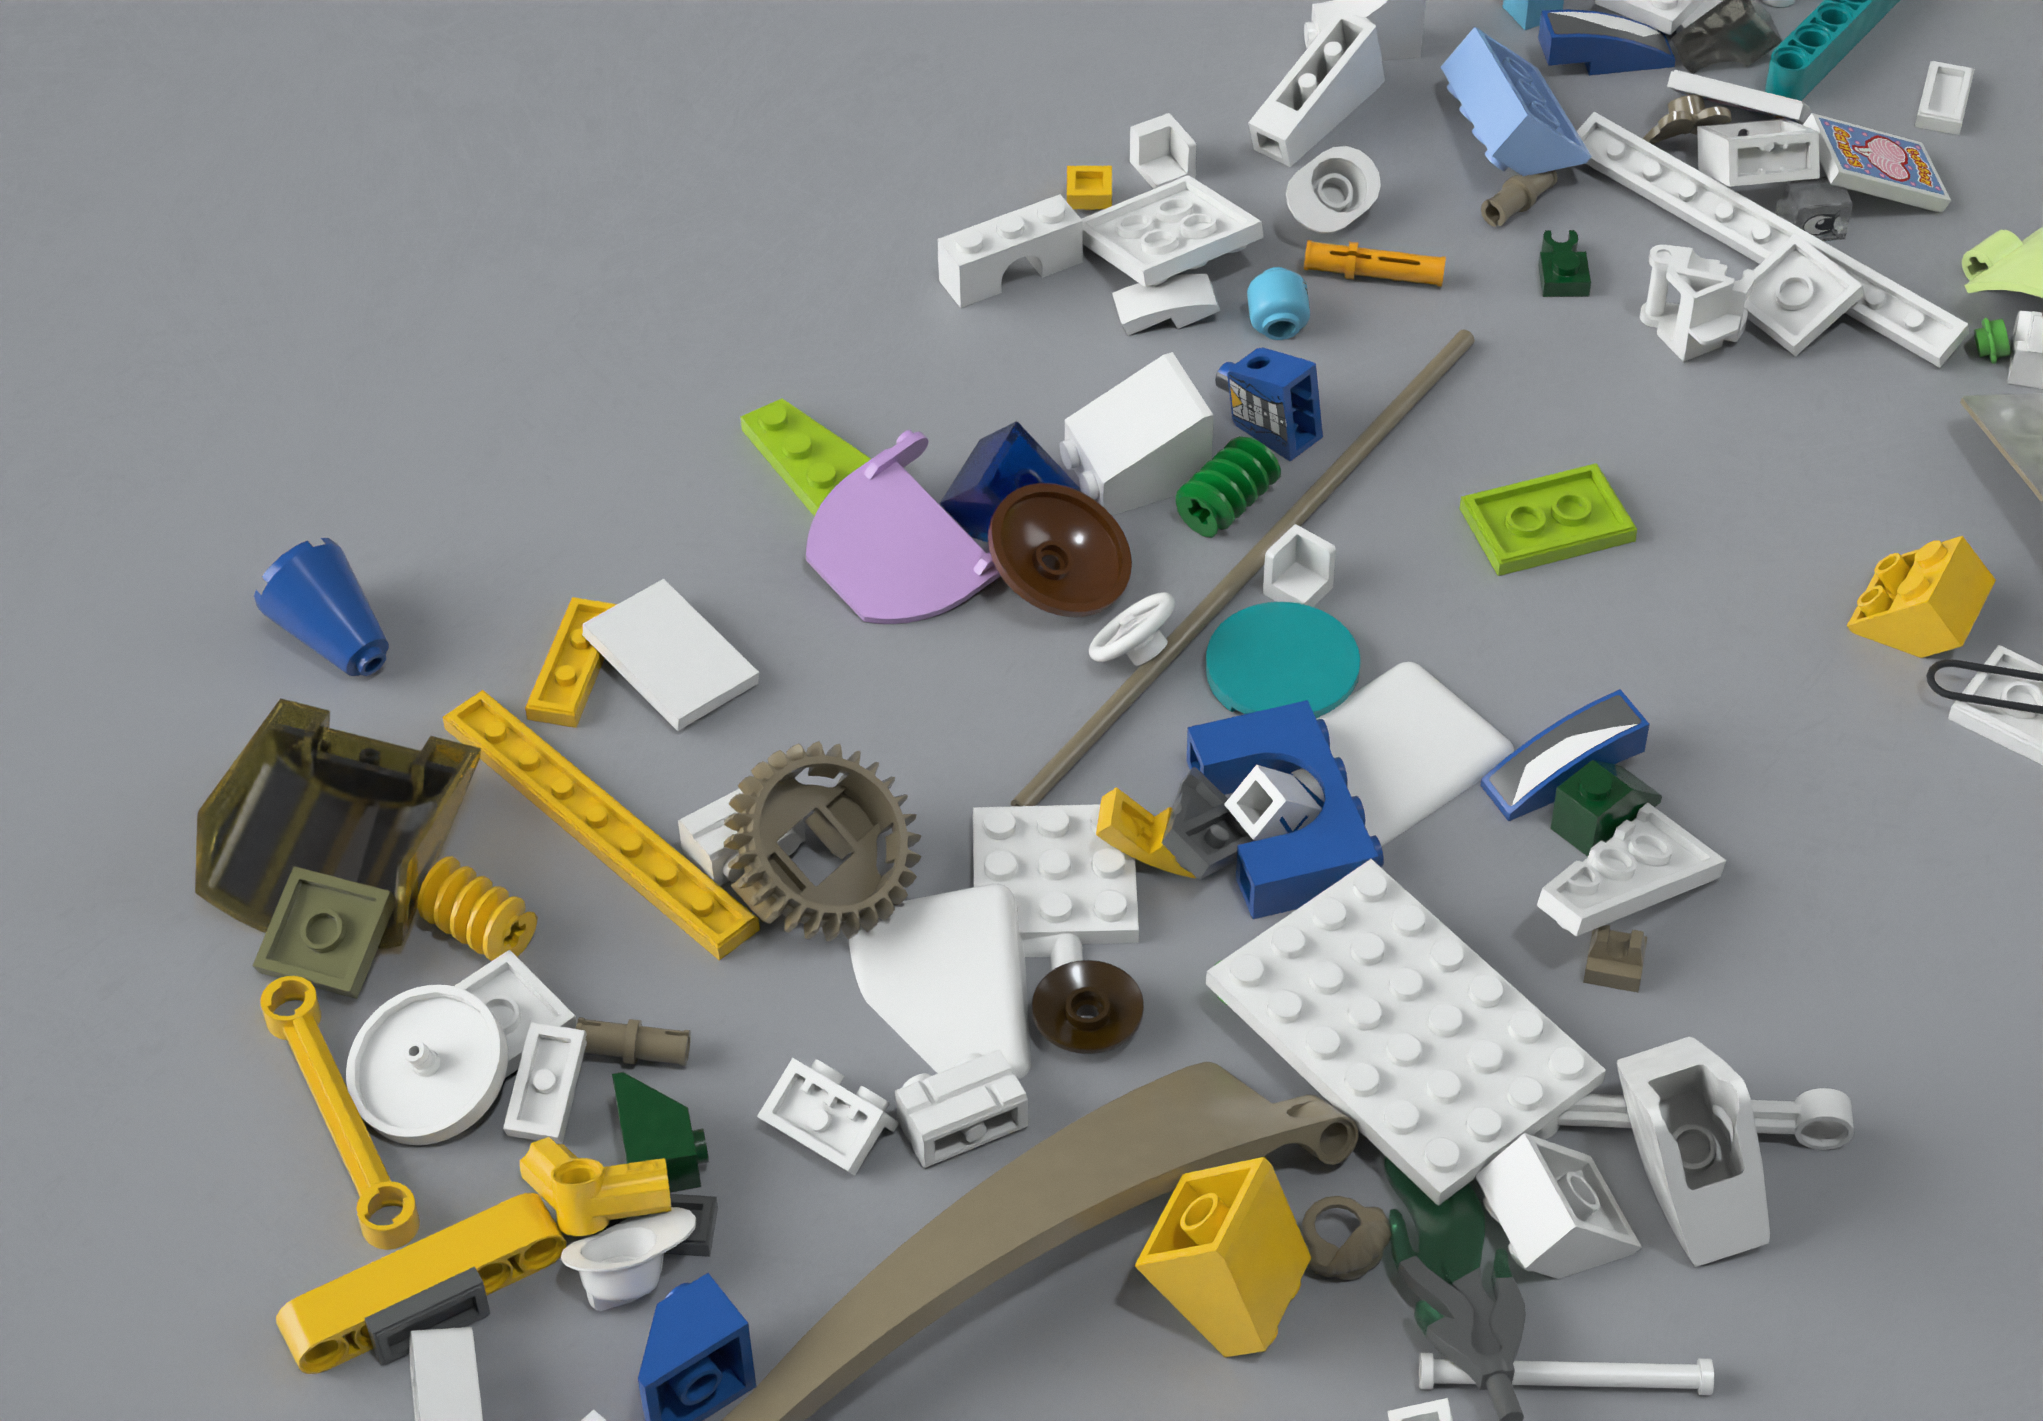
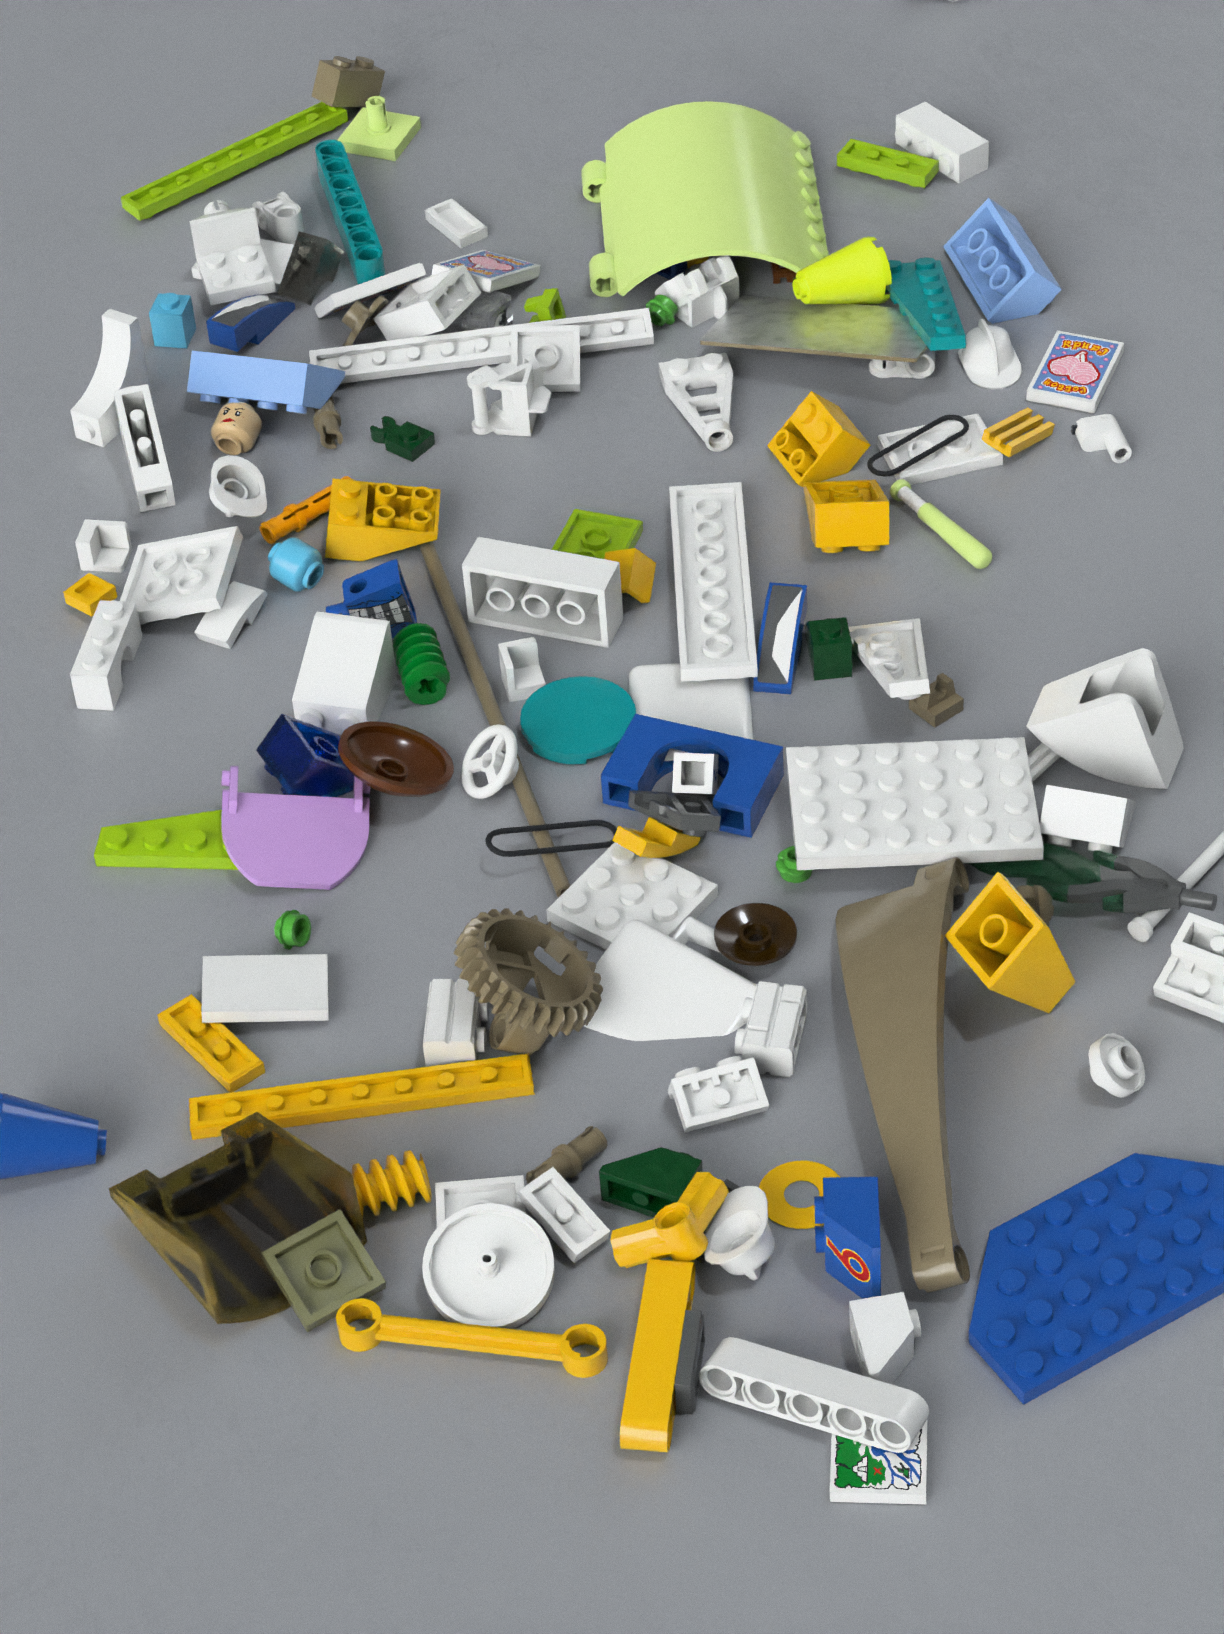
camera: 50 degrees left, 5 degrees down
(772, 635) = (292, 929): none -> bright green plate
(792, 1258) = (779, 1178): none -> yellow piece
(1085, 730) = (492, 848): none -> black piece
(1404, 318) = (379, 518): none -> yellow slope
(1419, 513) = (543, 592): none -> white brick
(1430, 135) = (236, 428): none -> tan head
(1530, 569) = (635, 572): none -> yellow panel
(1596, 642) = (712, 582): none -> white plate
(1832, 692) = (847, 515): none -> yellow slope
(1880, 247) = (547, 306): none -> lime tile
(1910, 808) = (948, 530): none -> yellowish green piece
(1917, 424) = (699, 373): none -> white plate

